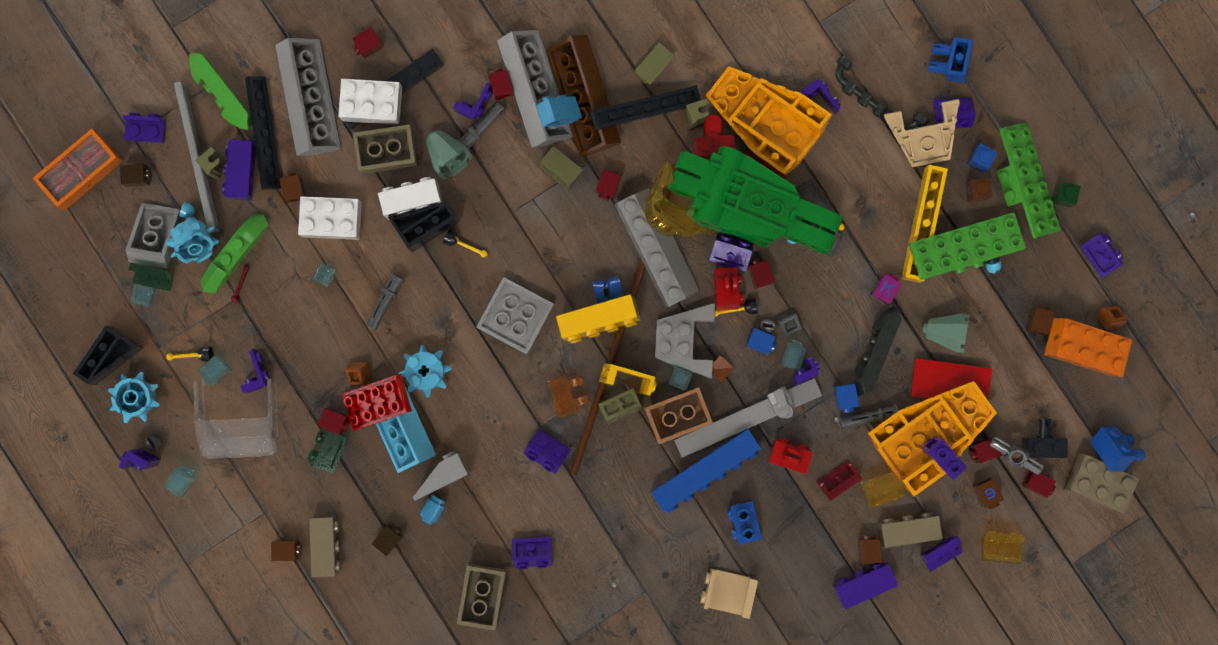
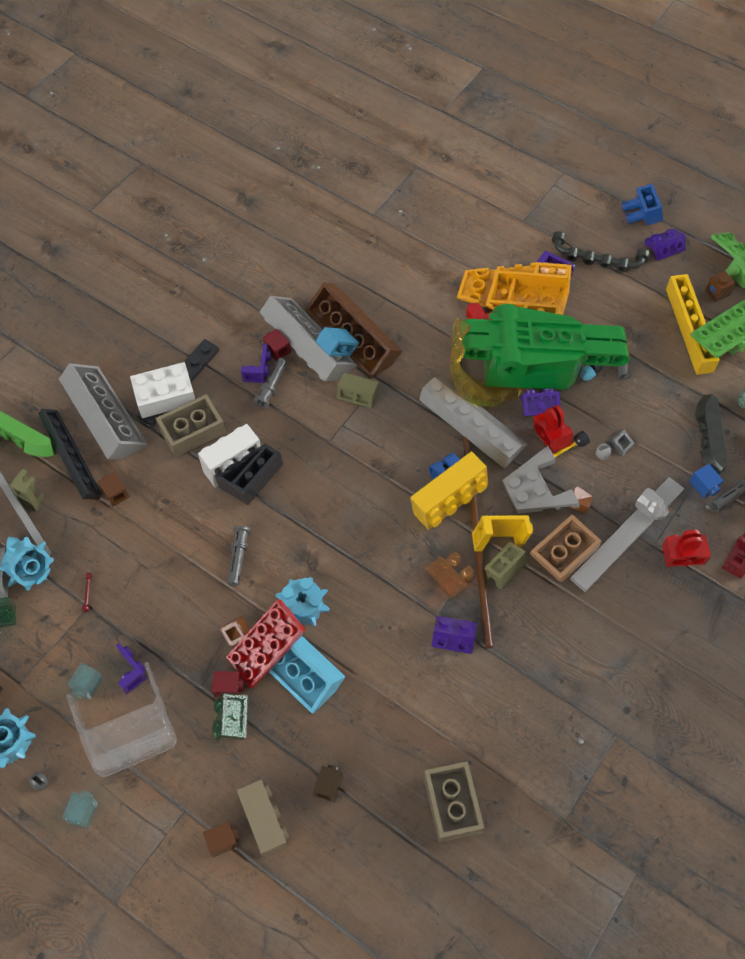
camera: 20 degrees left, 25 degrees down
(138, 458) = (22, 797): dark purple bracket -> none
(203, 354) = (67, 671): hinge -> none
(233, 253) = (71, 566): bright green brick -> none
(239, 170) = (55, 491): dark purple brick -> none
(324, 275) = (169, 552): clear light blue plate -> none
(329, 218) = (157, 501): white brick -> none
(366, 43) = (143, 352): dark red brick -> none
(432, 509) = (363, 733): dark azure brick -> none
(446, 154) = (250, 410): sand green cone -> none
(446, 472) = (365, 686): light grey slope -> none
(451, 239) = (281, 480): hinge -> none
(515, 315) = (369, 523): light grey plate -> none
(531, 552) = (484, 738): dark purple bracket -> none
(608, 185) = (406, 387): dark red brick -> none
(644, 108) = (411, 315): black plate -> none
(653, 64) = (401, 288): olive hinge -> none
(680, 378) = (548, 519): clear light blue brick -> none
(694, 113) = (454, 305): olive hinge -> none
(706, 470) = (614, 592): blue brick -> none
(729, 592) = (700, 700): tan panel -> none
(745, 522) = (677, 625): blue brick -> none
(760, 273) = (576, 410): dark red brick -> none
(761, 341) = (605, 463): blue brick -> none
(793, 355) = (640, 465): clear light blue brick -> none
(807, 373) = (661, 467): dark purple bracket -> none
(886, 288) = (689, 384): magenta brick -> none
(929, 142) = (656, 268): tan wing -> none
(982, 158) = (708, 263): blue brick -> none

